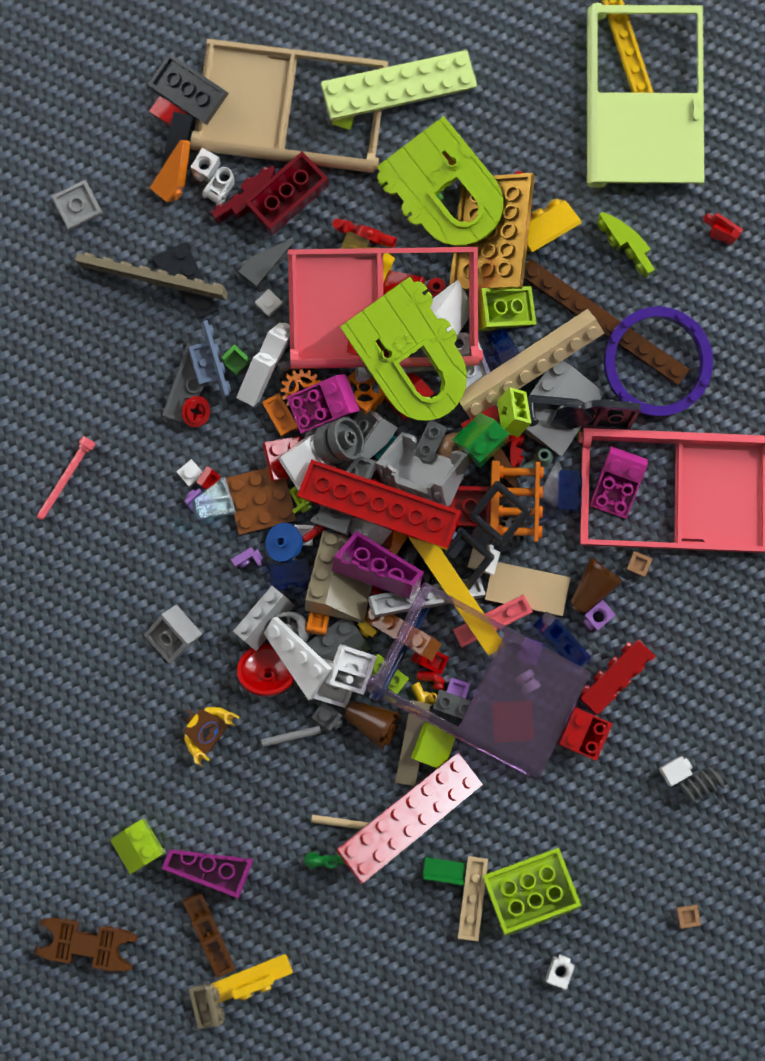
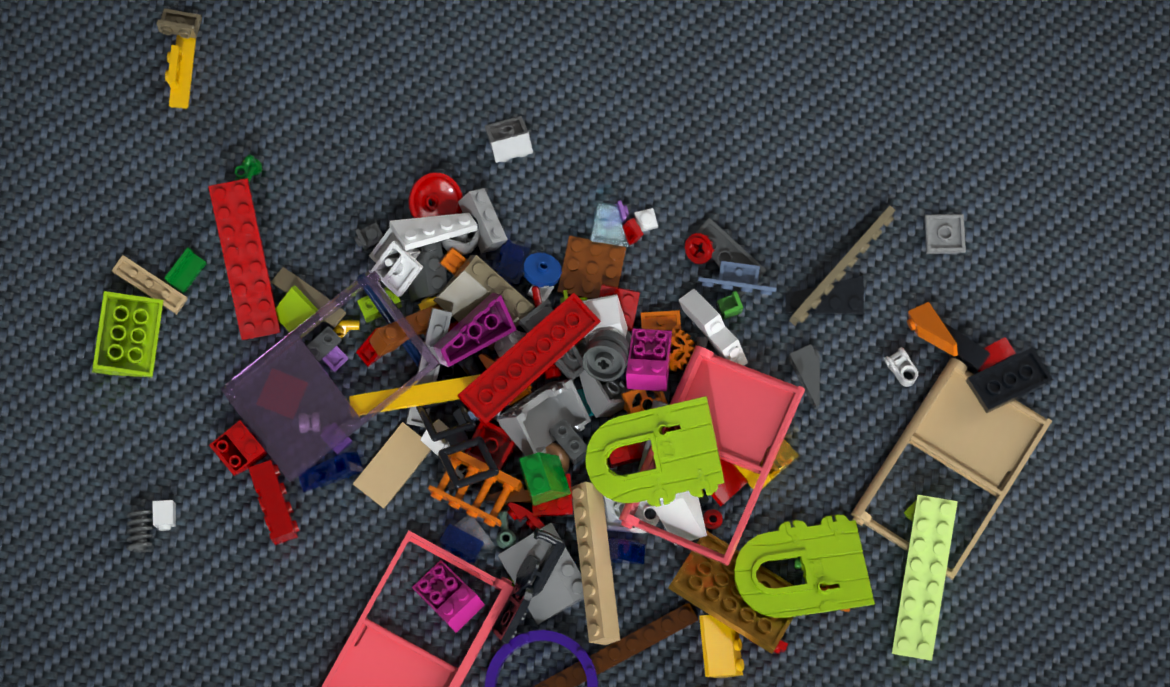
camera: 110 degrees right, 5 degrees down
(85, 446) = (714, 140): coral piece -> none
(137, 846) = (342, 29): lime slope -> none
(205, 157) = (926, 371): white brick -> none
(205, 730) = (410, 126): torso -> none
(209, 934) = (237, 53): reddish brown slope -> none
(214, 871) = (287, 78): magenta wedge -> none
(237, 202) = (882, 394): dark red slope -> none
(244, 558) = (544, 228): medium lavender bracket -> none
(268, 302) = (771, 361): white plate -> none
(287, 193) = (865, 423): dark red slope -> none
(291, 736) = (369, 198): light grey bar -> none
(338, 822) = (273, 204): tan bar -> none
(373, 722) = (343, 270): reddish brown cone -> none
(374, 236) = (792, 473): red torso -> none
(433, 677) = (357, 342): red arm -> none
(503, 614) = (380, 426): coral tile -> none
(505, 308) = (658, 570): lime slope -> none
(514, 411) = (555, 522): lime brick -> none
(560, 981) = (42, 321): white brick -> none
(594, 586) = (364, 524): reddish brown cone -> none
(606, 612) = (341, 521): medium lavender brick -> none
(639, 564) = (363, 576): medium nougat plate -> none
(688, 916) = (34, 461): medium nougat plate -> none

